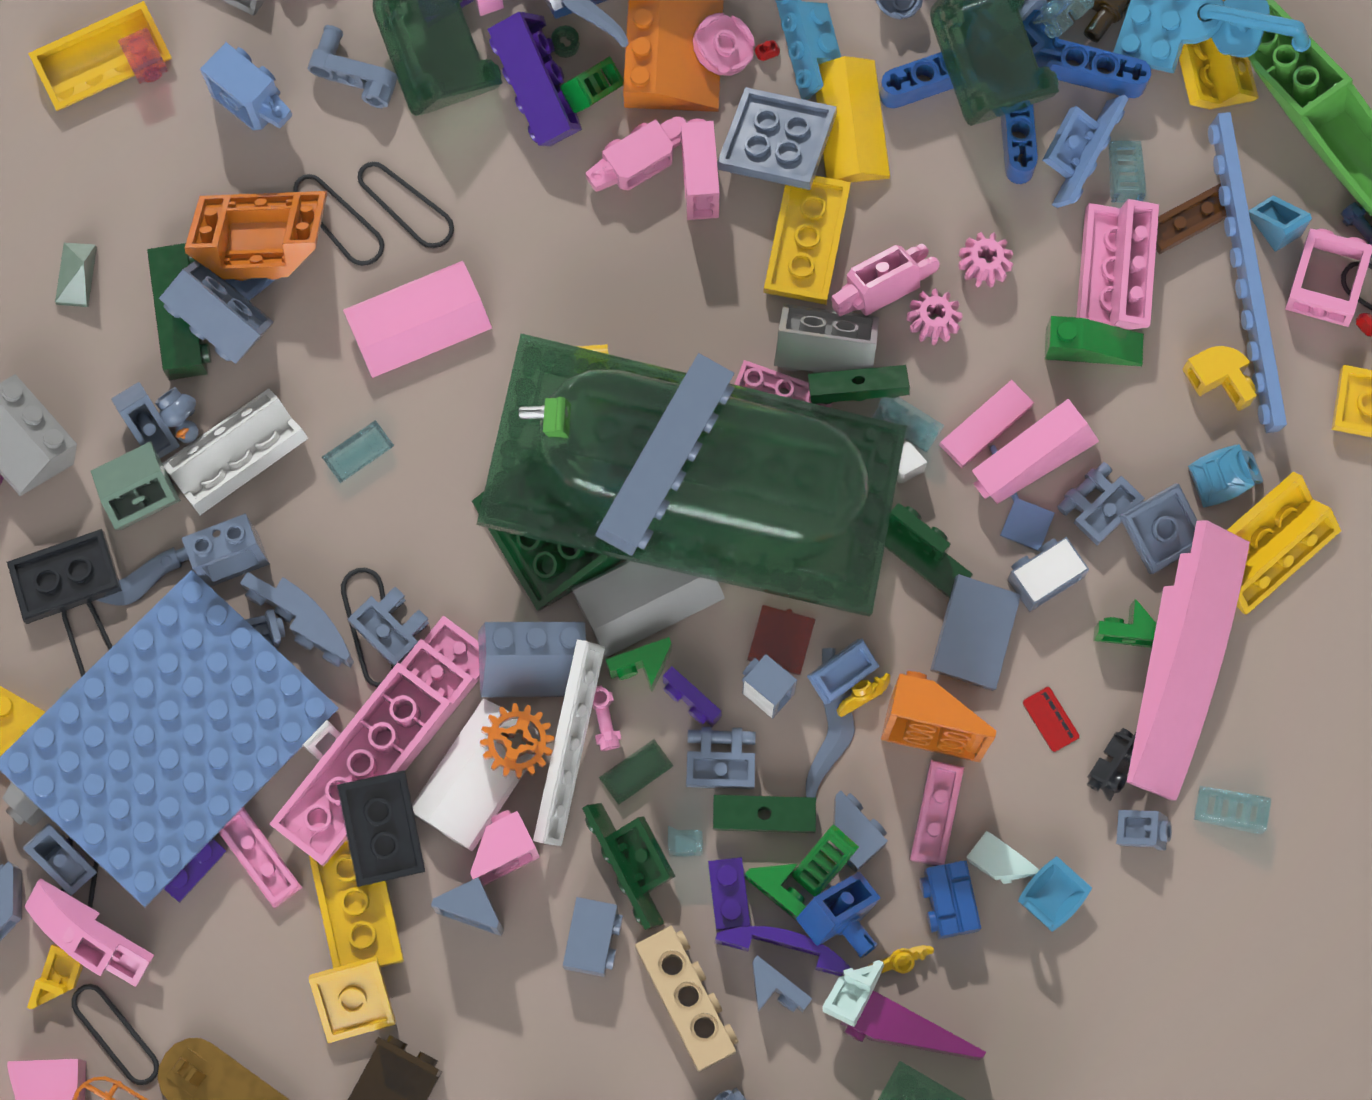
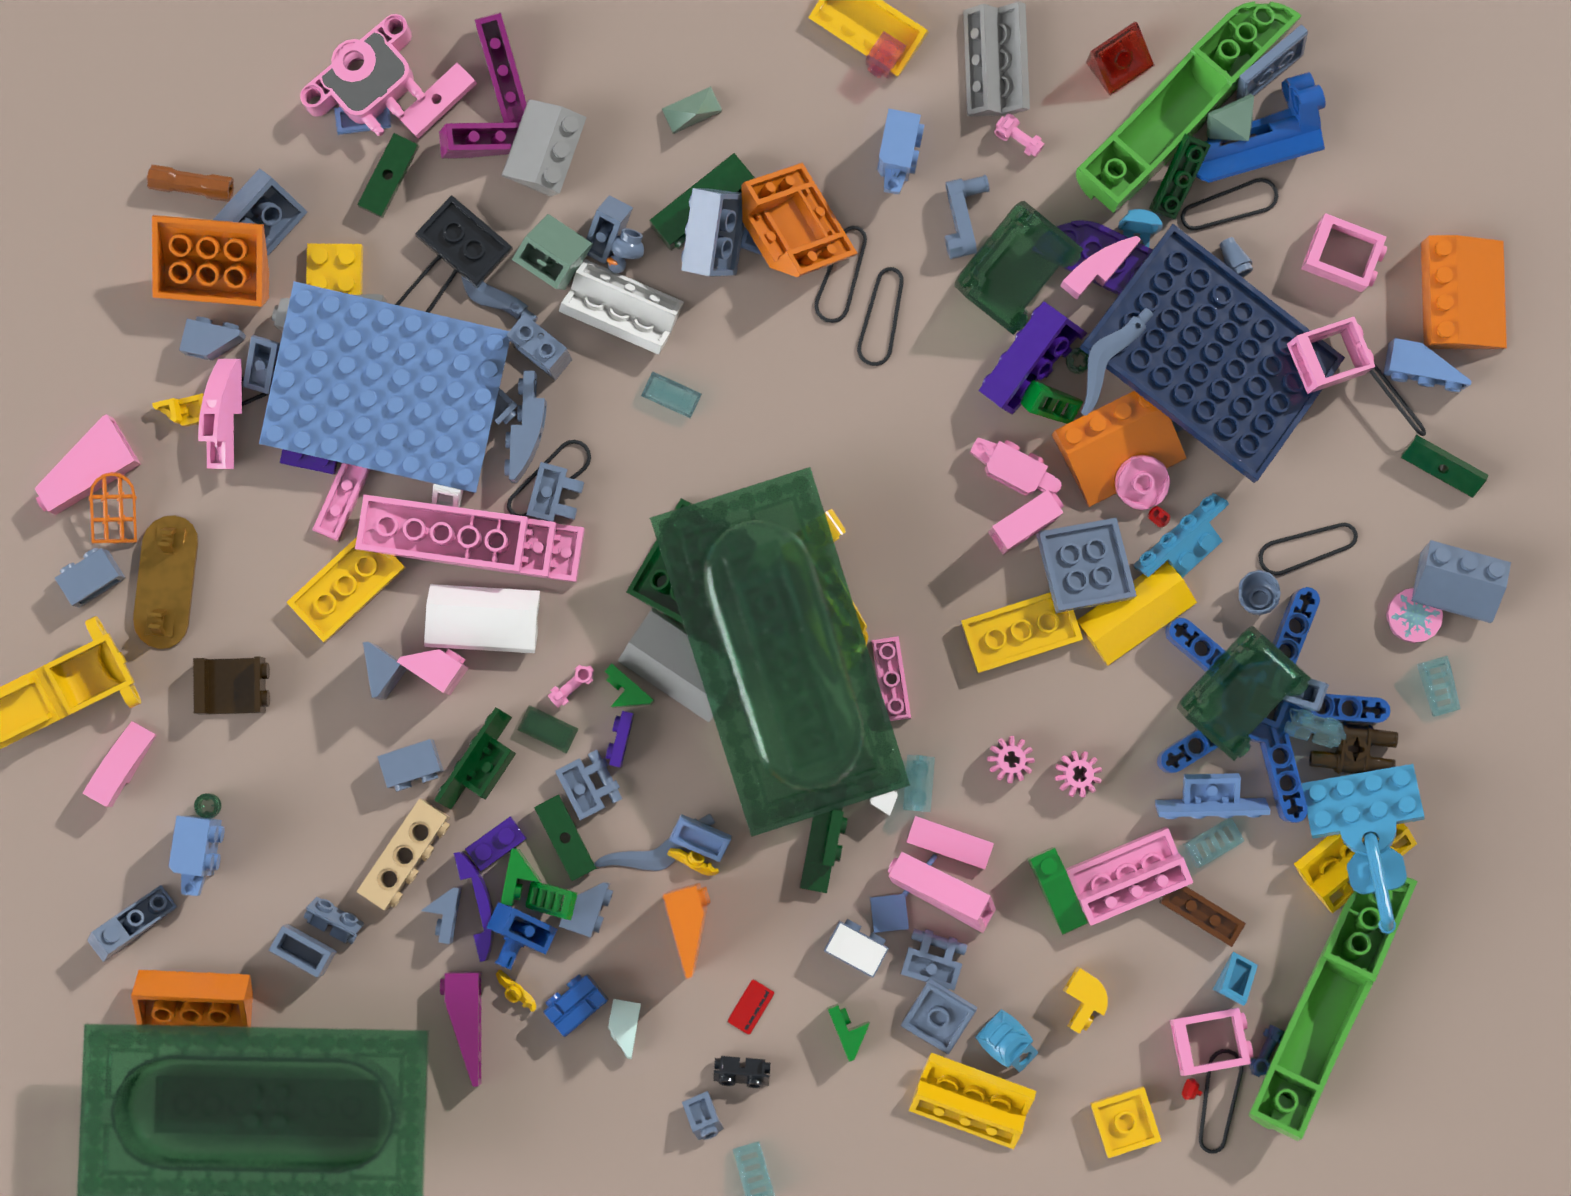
camera: 60 degrees right, 10 degrees up
(103, 1043) = (158, 470): black piece -> none
(352, 999) = (276, 623): yellow plate -> none
(380, 828) = (403, 574): black tile -> none
(417, 319) = (794, 379): bright pink slope -> none
(501, 734) = (513, 621): orange gear -> none
(527, 657) = (583, 610): sand blue slope -> none
(555, 414) = (745, 532): bright green piece -> none
(569, 743) = (537, 671): white tile -> none
(665, 454) = (759, 630): sand blue brick -> none
(684, 842) = (514, 792): clear light blue slope -> none
(768, 685) = (656, 790): sand blue brick -> none
(782, 637) = (701, 780): clear red piece -> none
(824, 341) = (946, 689): light grey slope -> none
(852, 993) = (467, 970): light aqua slope -> none
(859, 384) = (920, 733): dark green tile -> none
(884, 279) = (1017, 707): bright pink hinge -> none
(936, 813) = (634, 961): bright pink tile -> none
(975, 632) = (782, 918): sand blue tile -> none
(1054, 894) = (617, 1076): dark azure piece -> none
(1186, 658) = (844, 1084): bright pink slope -> none
(1249, 283) = (1185, 969): medium blue plate -> none

